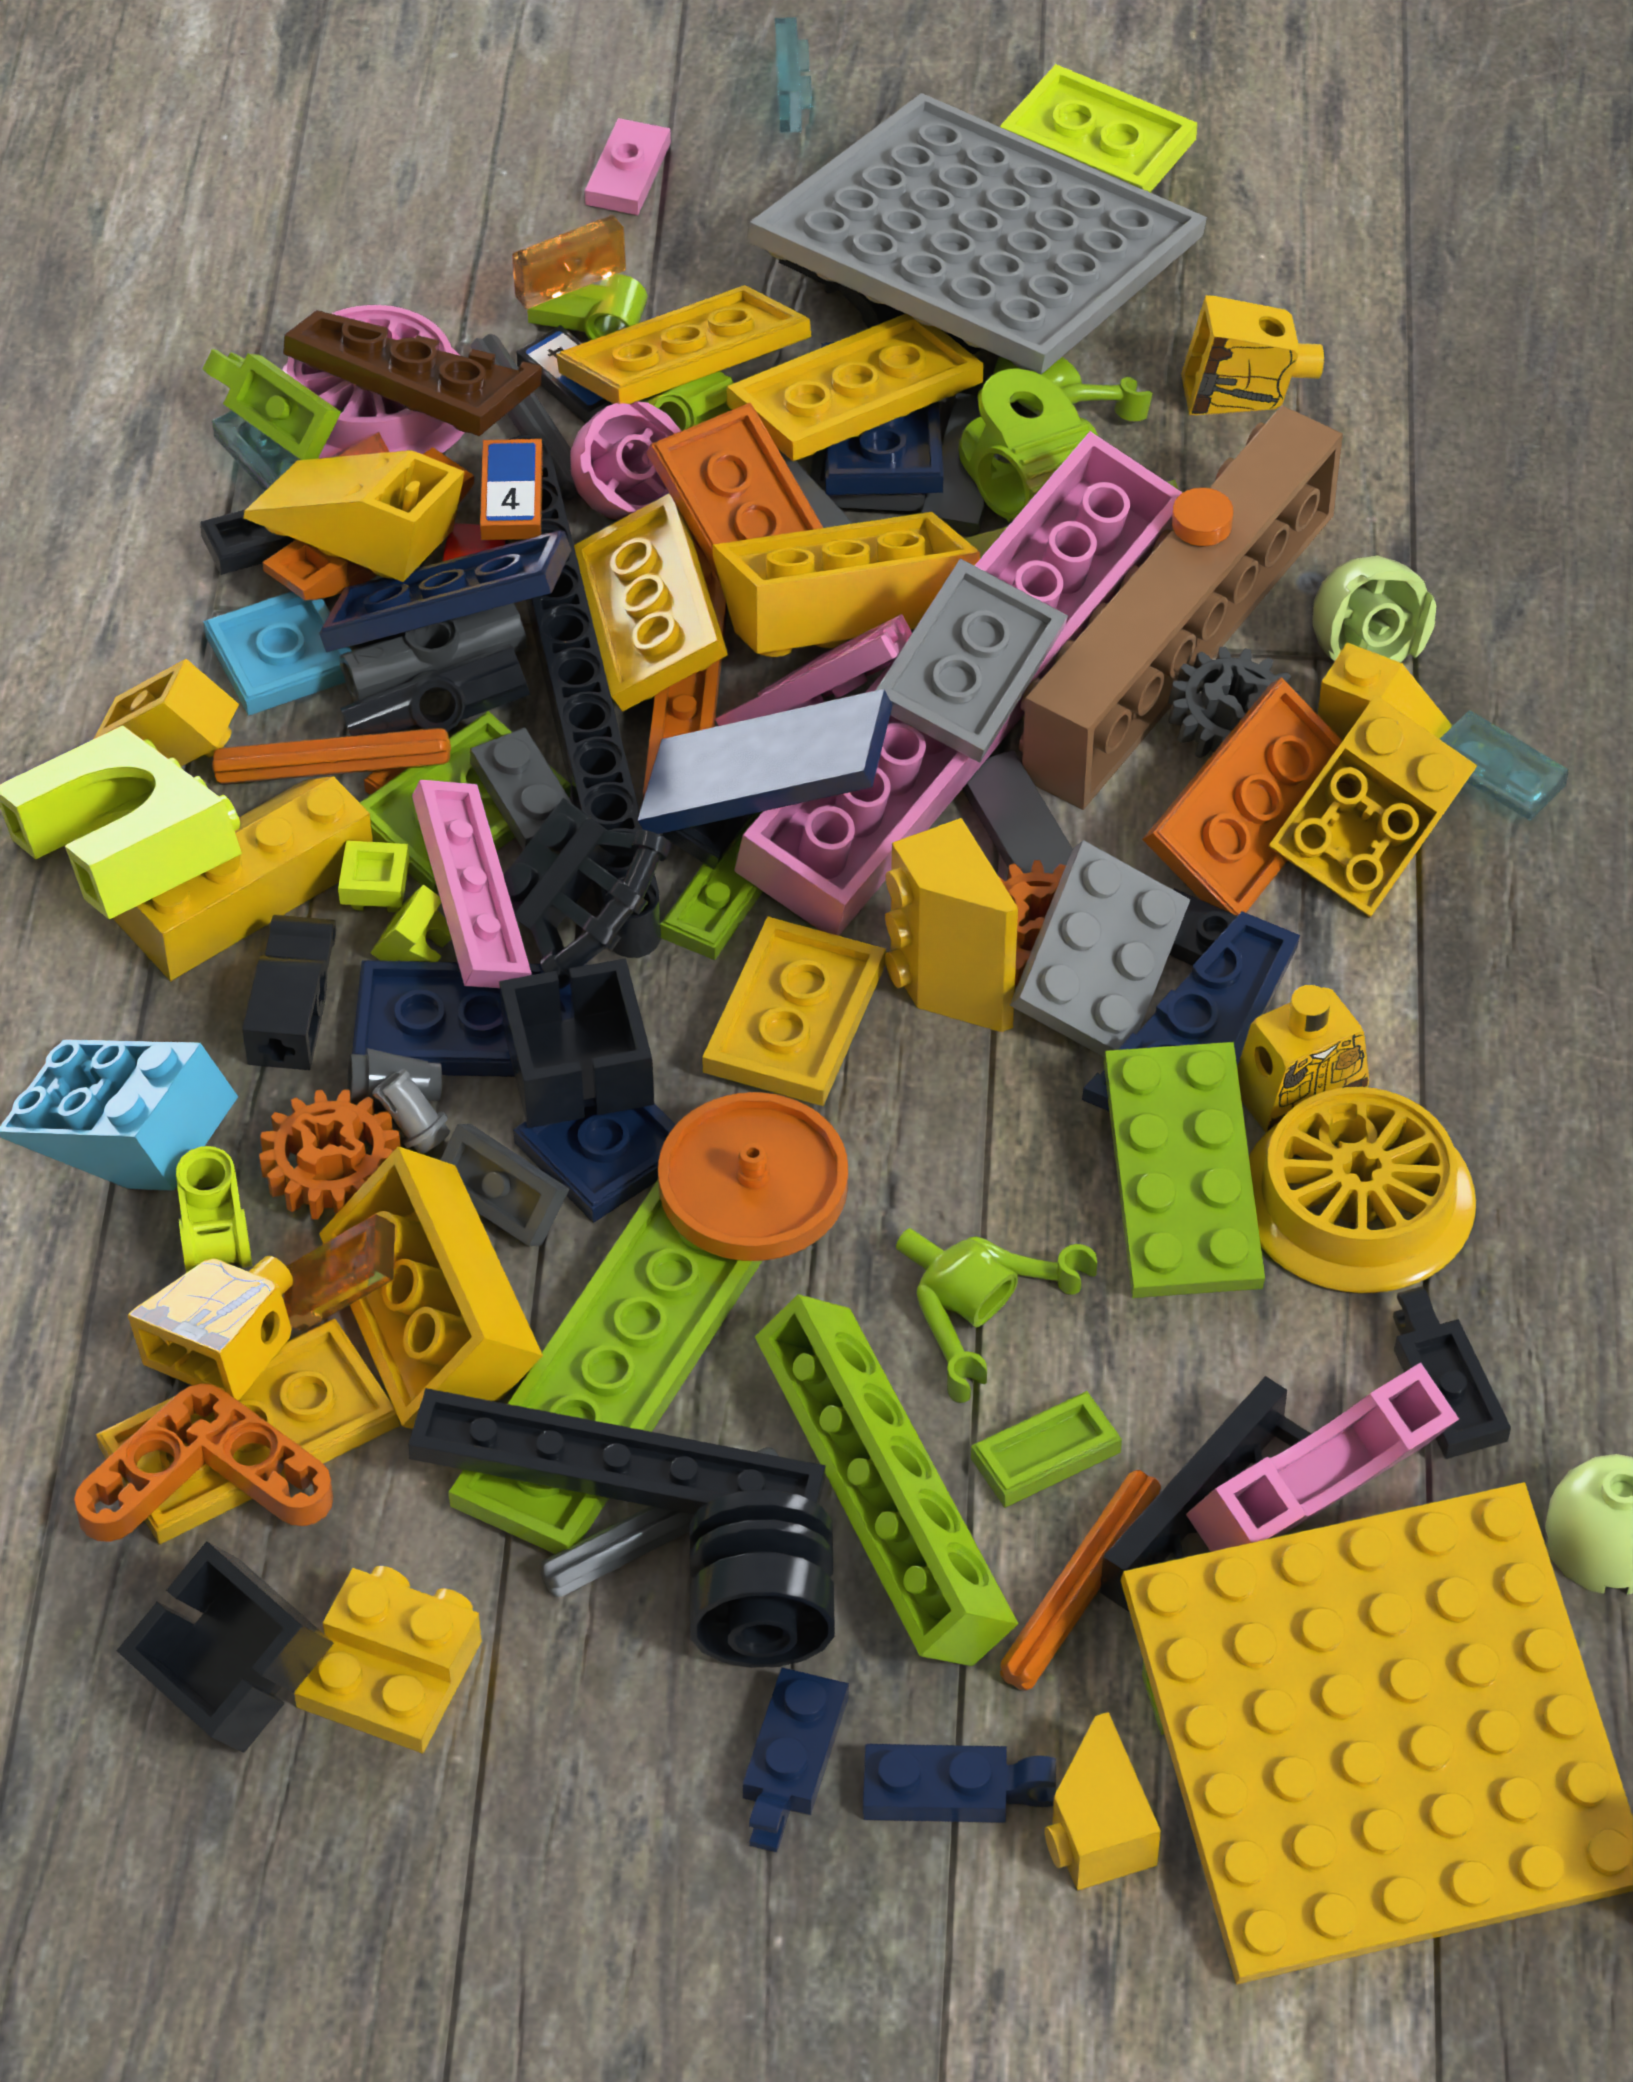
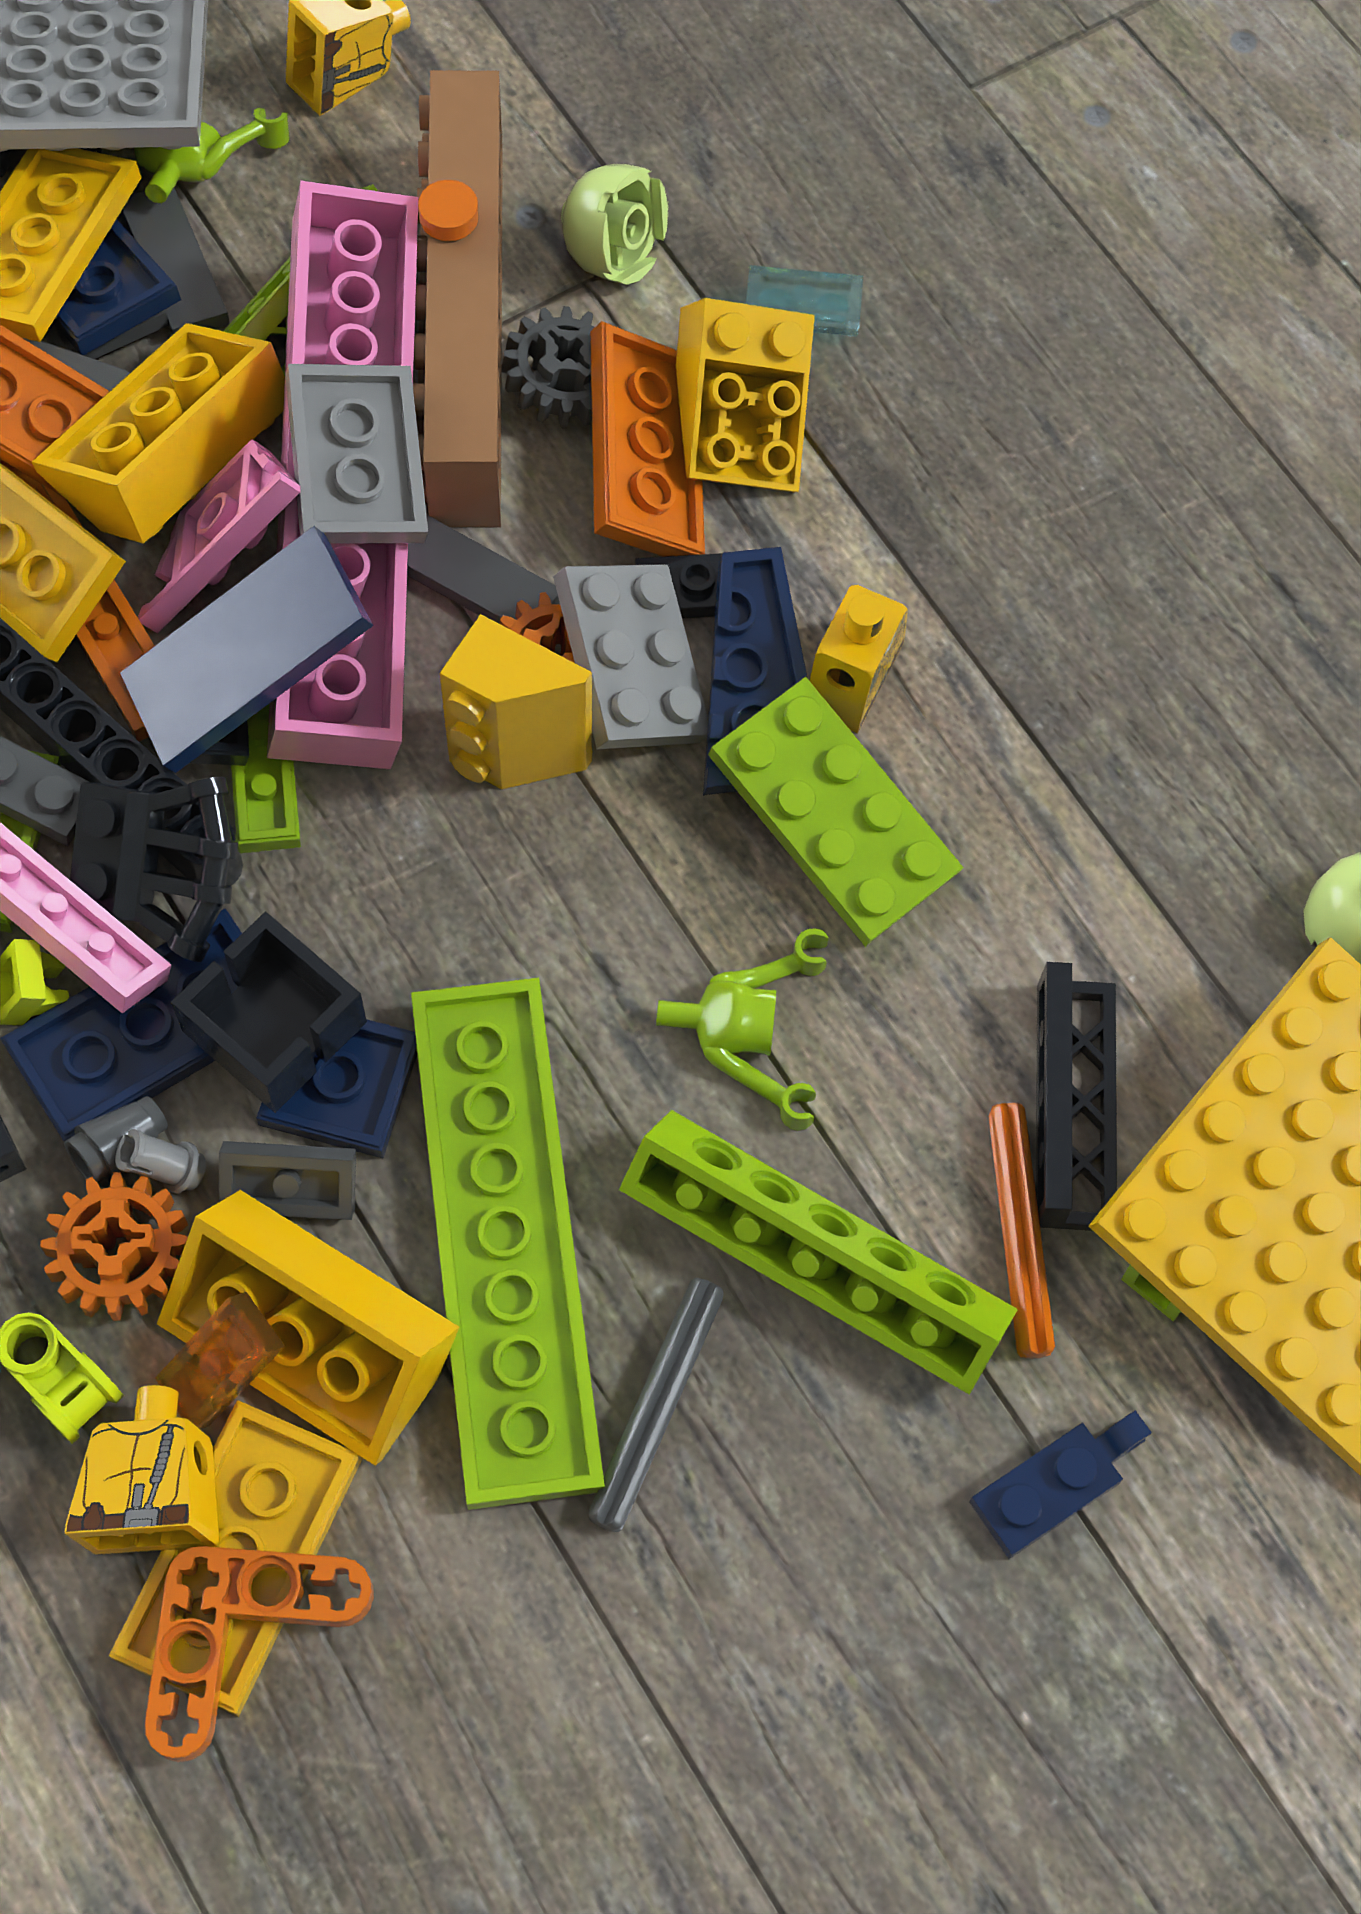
camera: 40 degrees left, 15 degrees up
(234, 1655) = (405, 1800): black piece -> none
(391, 1657) = (528, 1692): yellow plate -> none
(596, 1455) = (594, 1388): black plate -> none
(753, 1176) = (503, 1039): orange piece -> none
(761, 1579) = (807, 1426): black wheel -> none
(792, 1752) = (916, 1543): dark blue plate -> none
(794, 1011) = (412, 857): yellow plate -> none
(1031, 444) = (232, 237): lime piece -> none
(1046, 1449) = (905, 1129): lime tile -> none
(1101, 1813) = (1195, 1428): yellow slope -> none
(1326, 1464) = (1128, 1081): bright pink arch -> none
(1361, 1184) = (974, 739): yellow piece -> none
(1362, 674) = (661, 286): yellow slope -> none
(1455, 1371) = (1160, 867): black plate -> none

